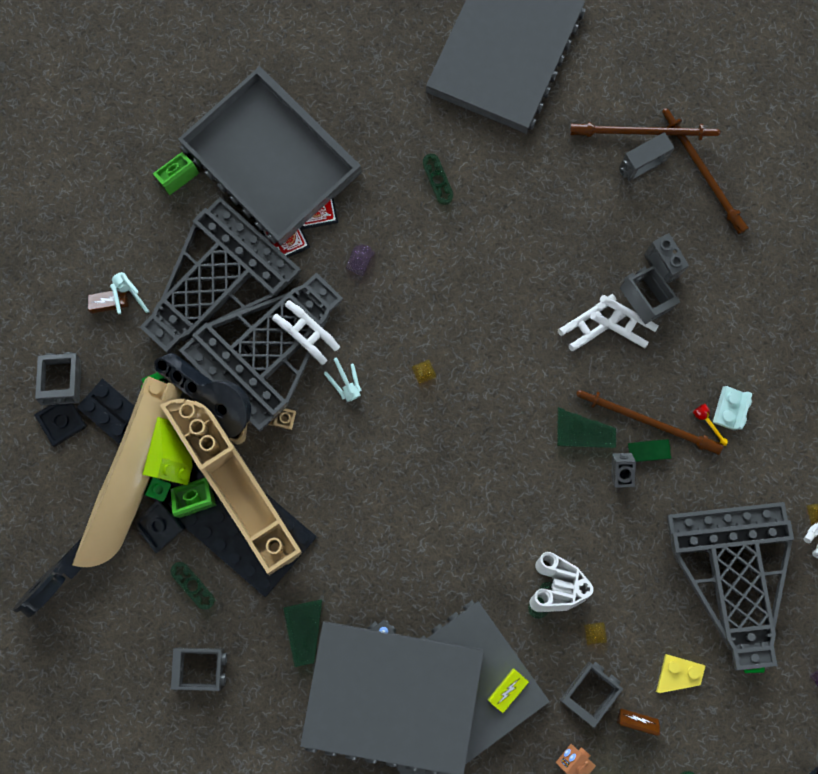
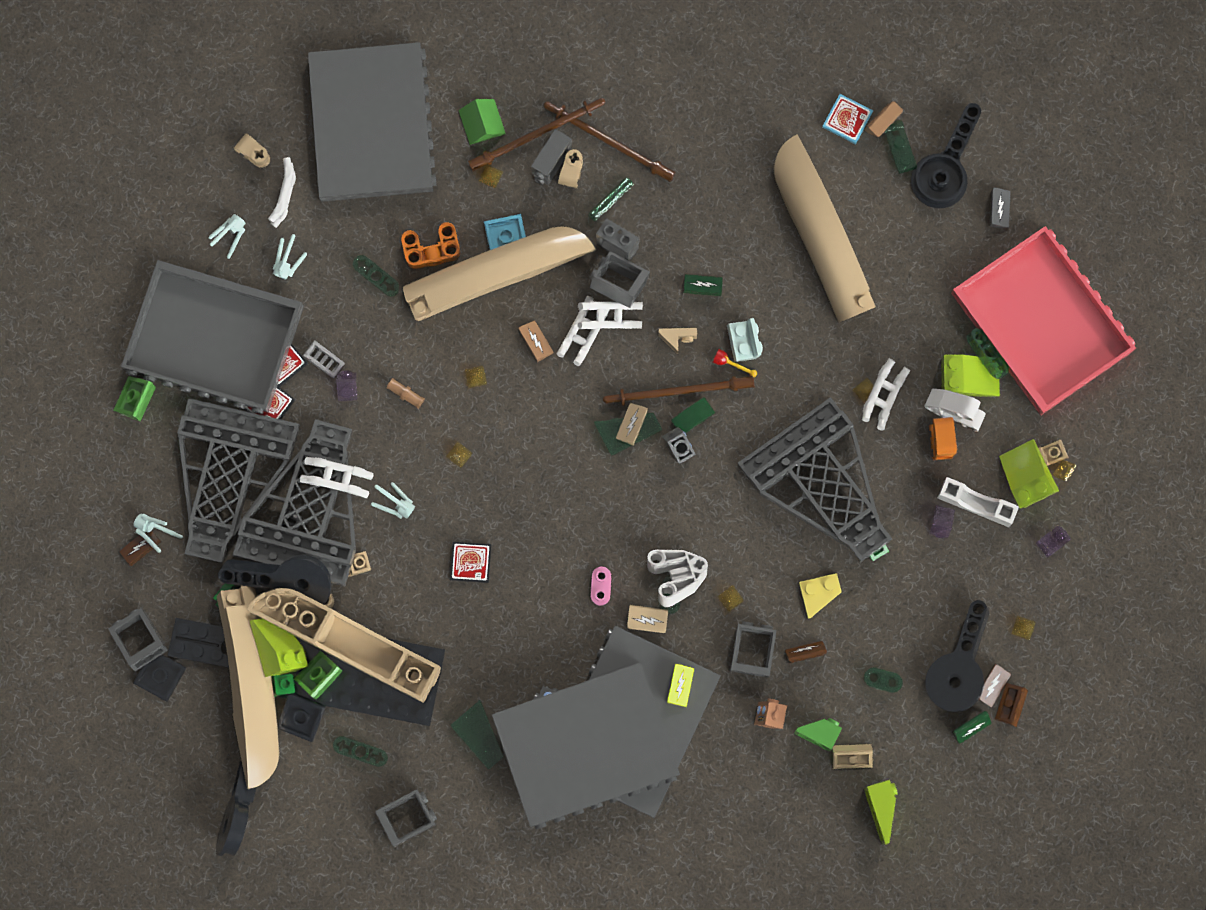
camera: 30 degrees left, 0 degrees up
(341, 72) = (234, 225): none -> light aqua plant
(352, 209) = (313, 360): none -> light grey slope
(361, 129) = (282, 268): none -> light aqua plant
(381, 471) = (470, 562): none -> tile
(387, 80) = (280, 210): none -> white piece
(391, 18) = (251, 150): none -> tan piece
(407, 292) = (405, 393): none -> medium nougat pin
(475, 311) = (475, 377): none -> clear yellow slope
(484, 556) = (601, 586): none -> bright pink plate
(496, 186) = (433, 254): none -> orange beam
(510, 611) = (647, 619): none -> tan slope
(544, 228) = (495, 270): none -> tan slope
(545, 308) = (535, 341): none -> medium nougat slope
(569, 205) = (504, 230): none -> medium azure tile
(583, 147) = (490, 176): none -> clear yellow slope
(591, 427) = (632, 423): none -> tan slope
(601, 95) = (481, 120): none -> bright green slope
(656, 178) = (571, 171): none -> tan piece
(669, 369) = (671, 336): none -> tan slope
(678, 221) = (610, 199): none -> clear green axle
(720, 340) = (703, 285): none -> dark green slope

